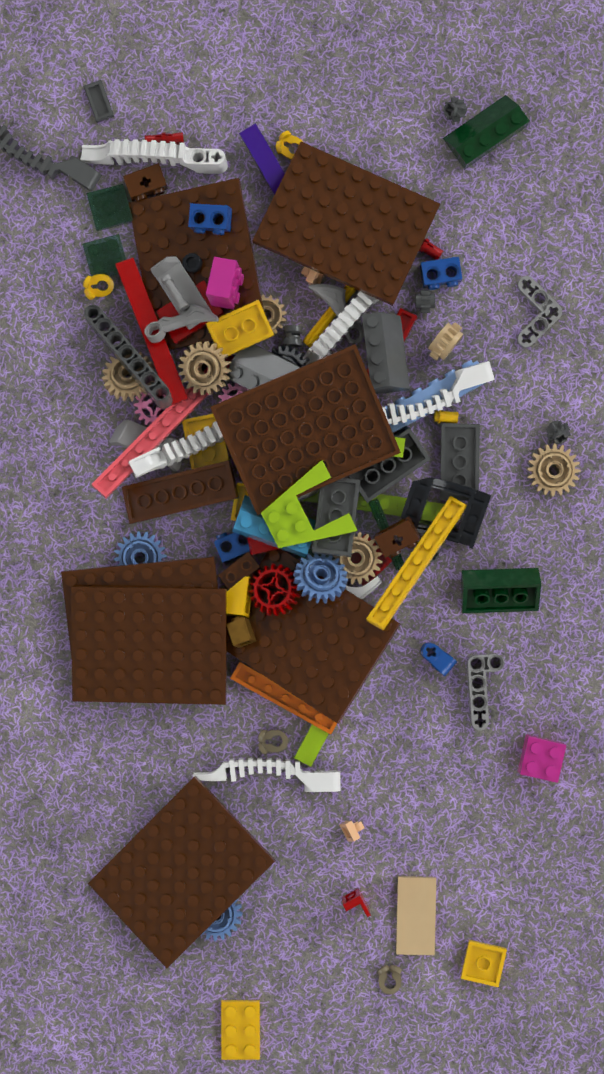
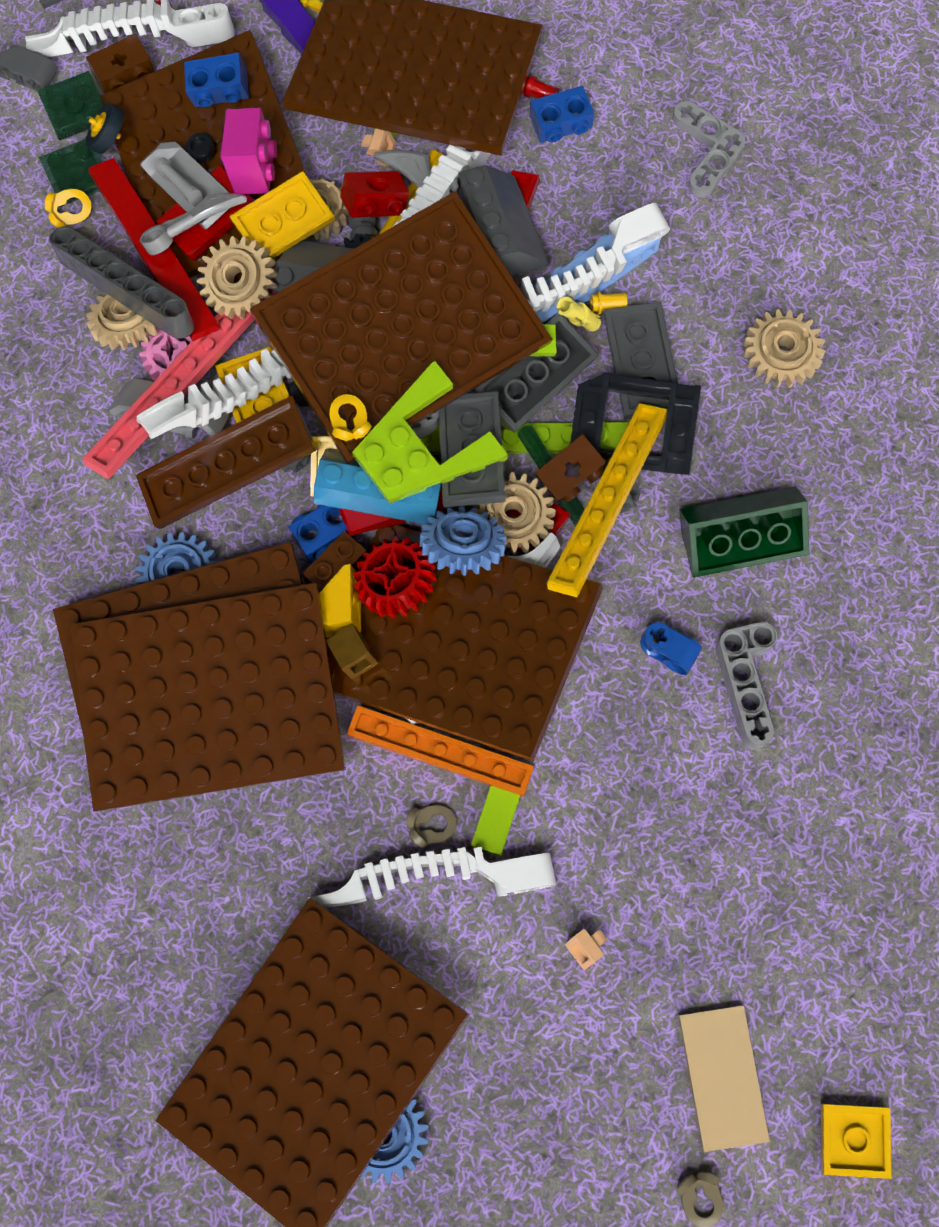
camera: 15 degrees left, 15 degrees down
(129, 235) = (104, 128): none -> black wheel
(269, 496) = (339, 425): none -> yellow piece
(311, 312) = (374, 194): none -> red brick
(353, 899) = (614, 1062): red panel -> none
(423, 427) = (578, 314): none -> light yellow pin
(424, 301) = (546, 153): dark grey gear -> none
(445, 341) = (587, 195): tan gear -> none
(541, 758) = (871, 775): dark pink brick -> none
(558, 432) = (778, 294): dark grey gear -> none

